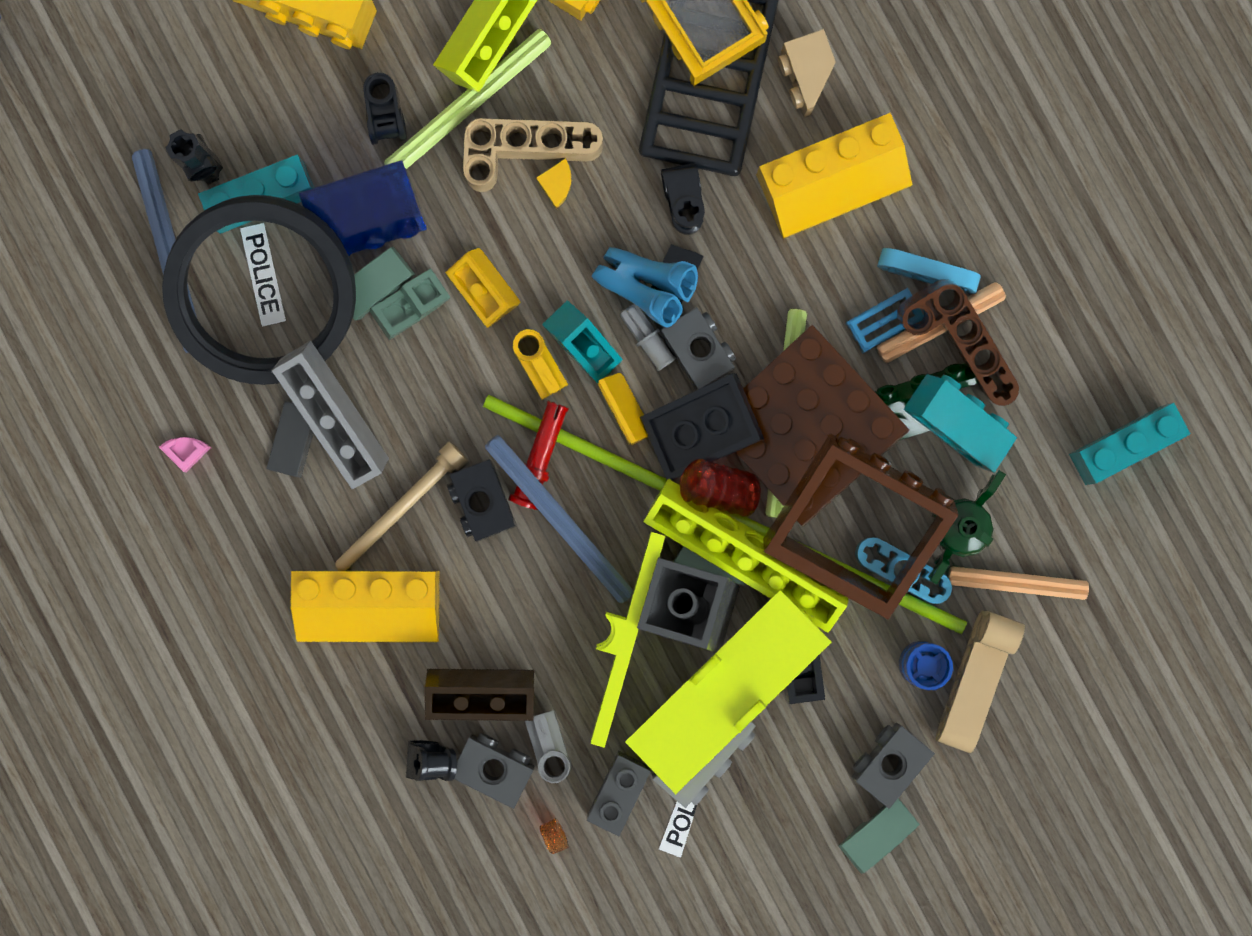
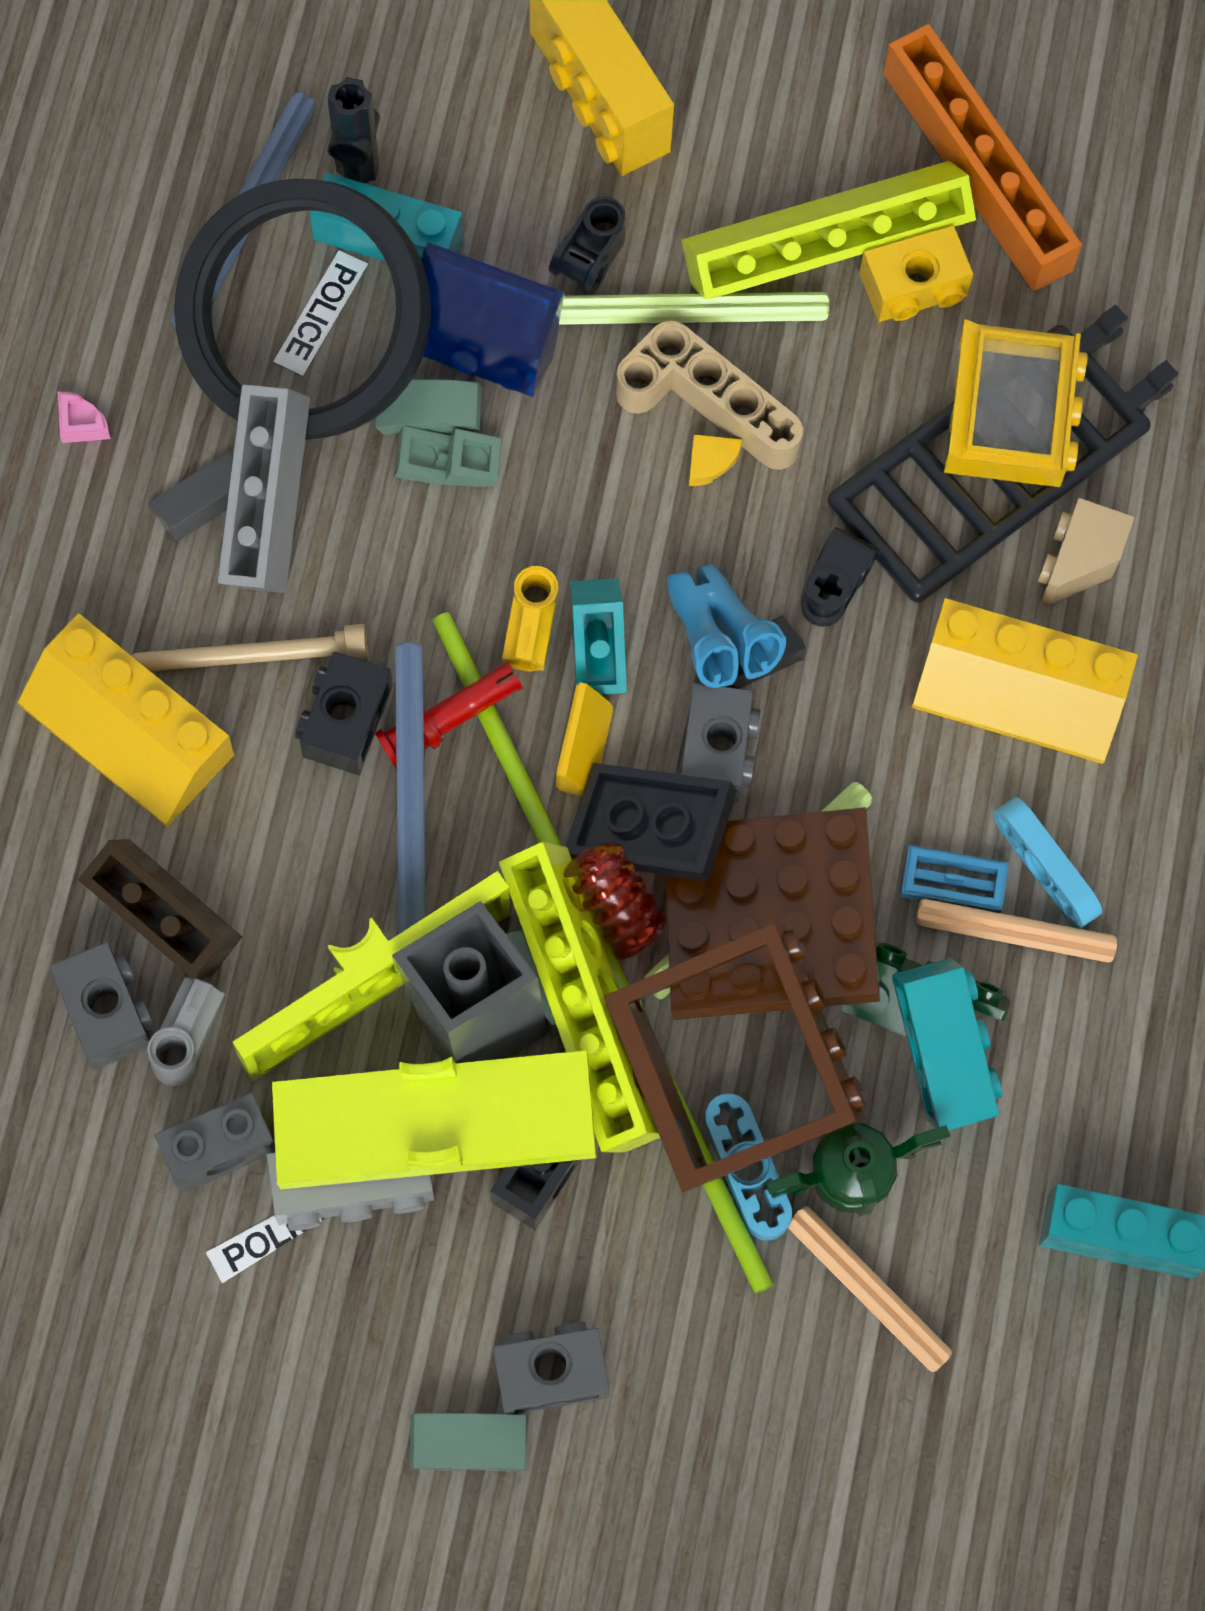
camera: 40 degrees right, 15 degrees down
(430, 761) = (41, 935): black piece -> none
(482, 287) = (540, 501): yellow slope -> none
(554, 836) = (103, 1134): clear orange axle -> none
(647, 337) = (673, 688): light grey axle -> none
(926, 665) = (683, 1286): blue wheel -> none
(966, 345) = (1022, 969): reddish brown beam -> none
(977, 679) = (730, 1355): tan beam -> none

